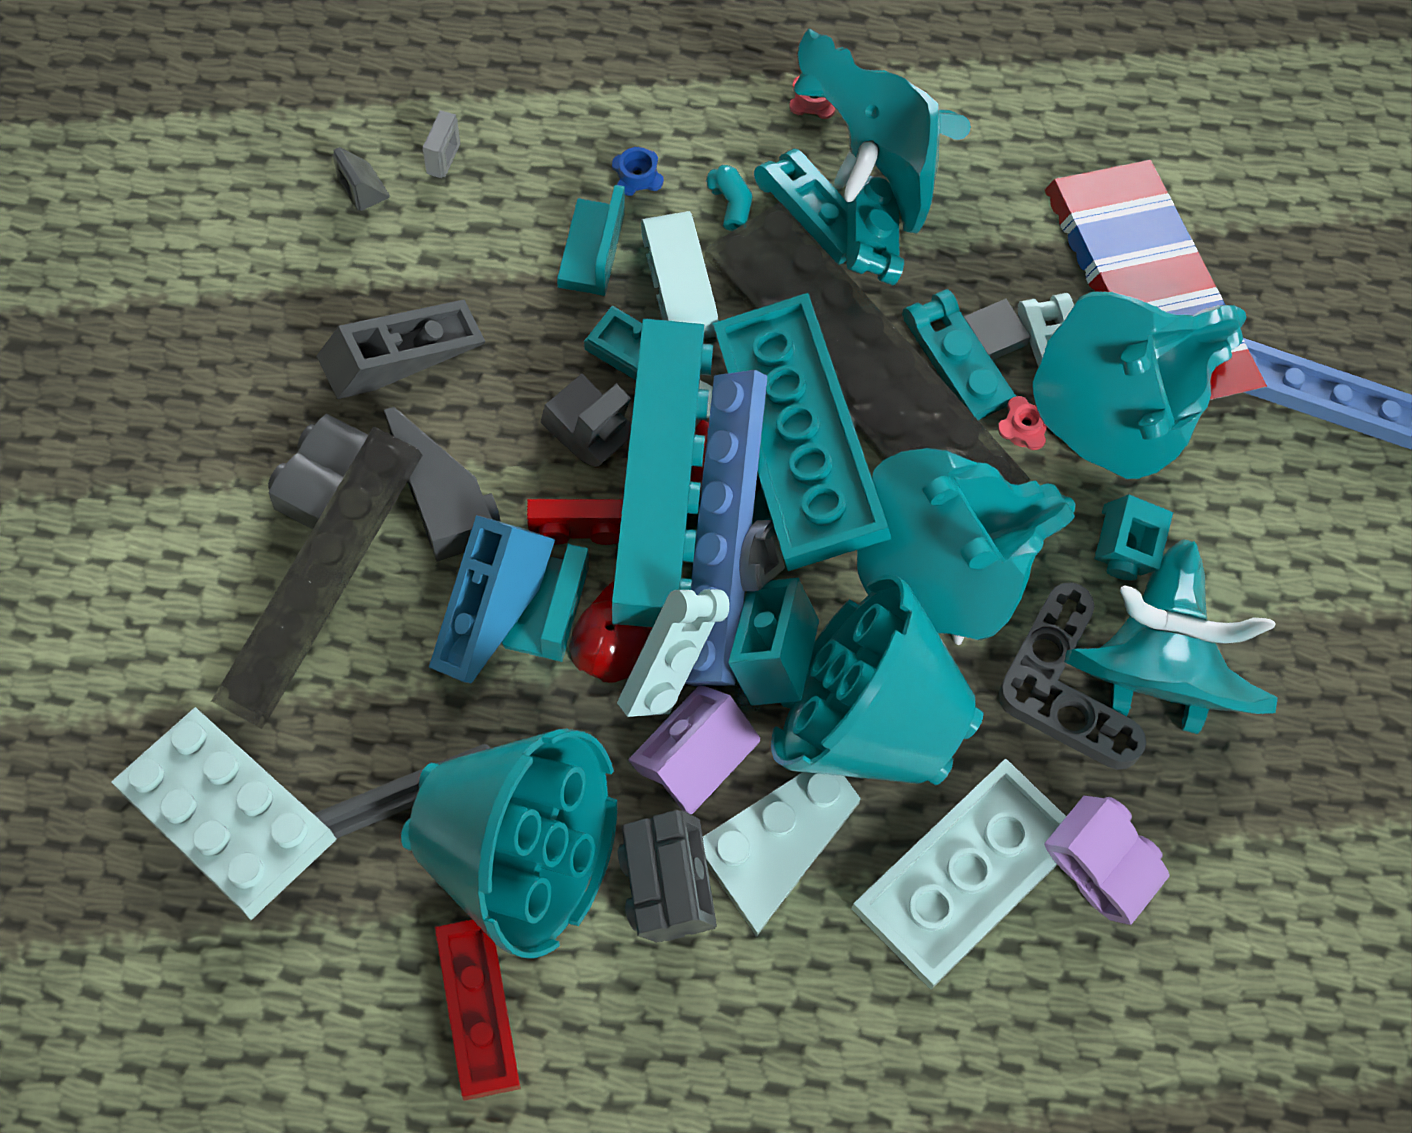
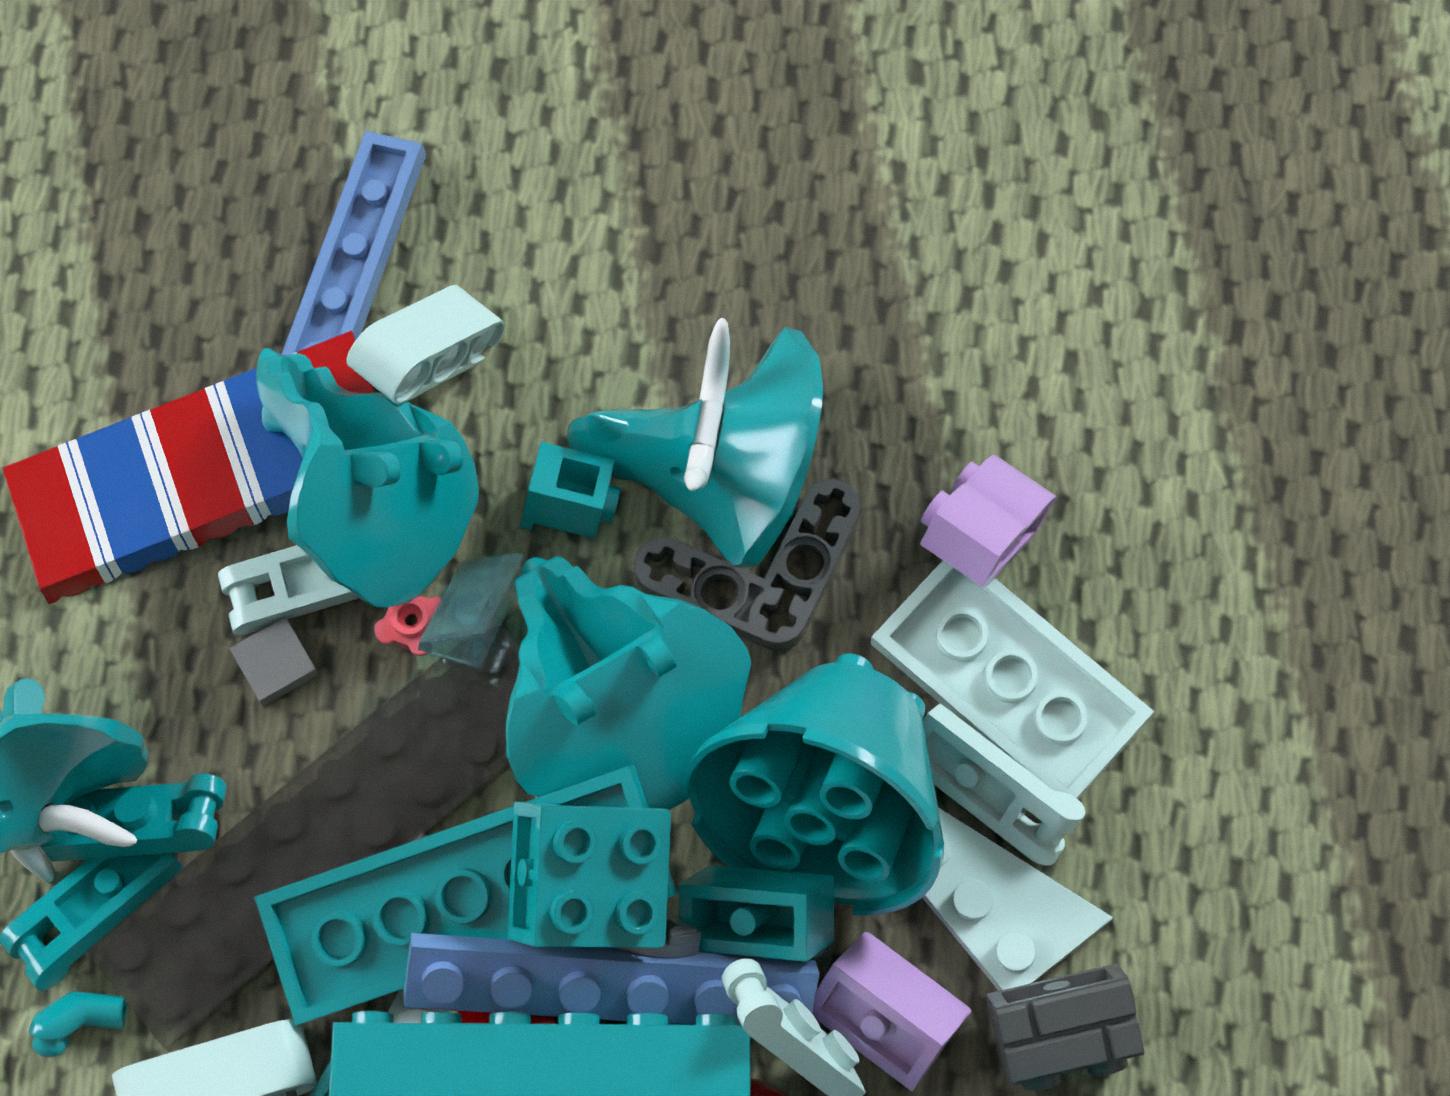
camera: 85 degrees left, 5 degrees up
(800, 497) = (589, 876): none -> teal bracket
(873, 844) = (998, 788): none -> light aqua plate
(958, 355) = (313, 708): teal plate -> none
(1030, 457) = (473, 609): none -> clear light blue slope
(1255, 430) = (425, 344): none -> light aqua beam

